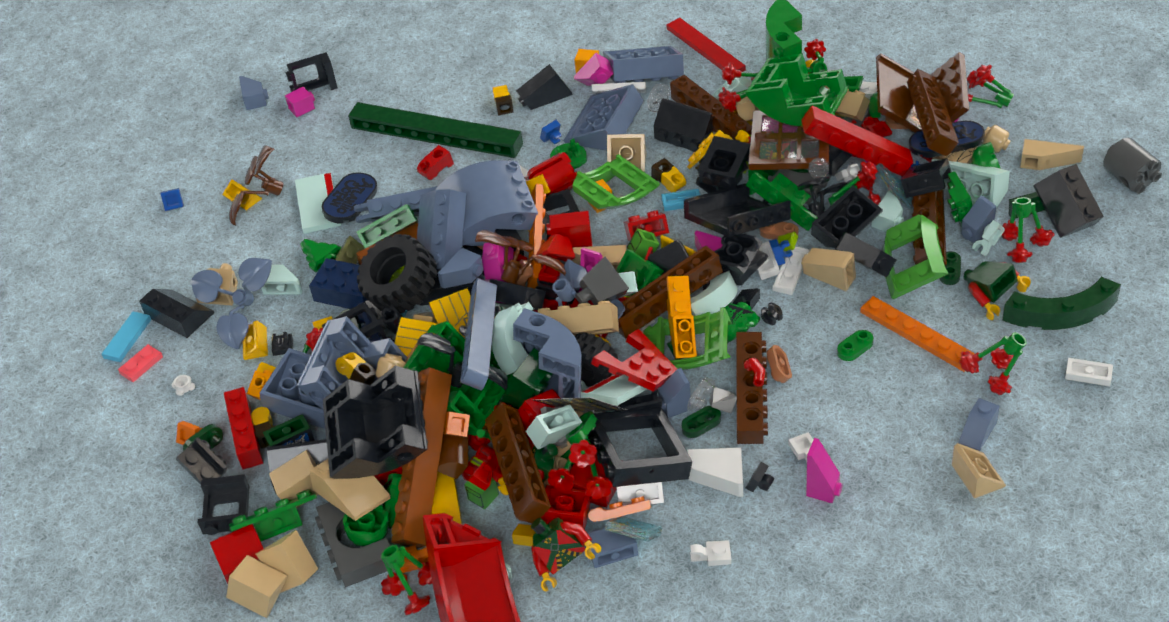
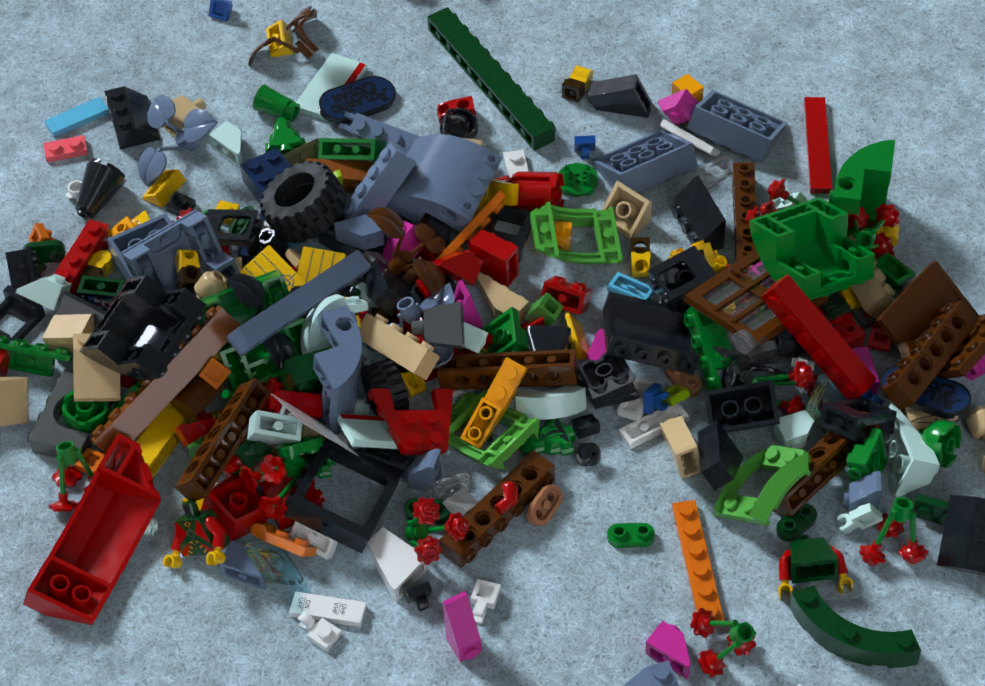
camera: 35 degrees right, 5 degrees up
(203, 368) = (98, 187): none -> black cone
(243, 461) = (46, 291): none -> light aqua slope
(288, 234) = (275, 104): none -> green plant
(446, 165) = (460, 123): none -> black hair
(700, 533) = (330, 608): none -> white tile
(725, 408) = (417, 533): none -> red plant
(963, 393) = (669, 644): none -> dark pink slope

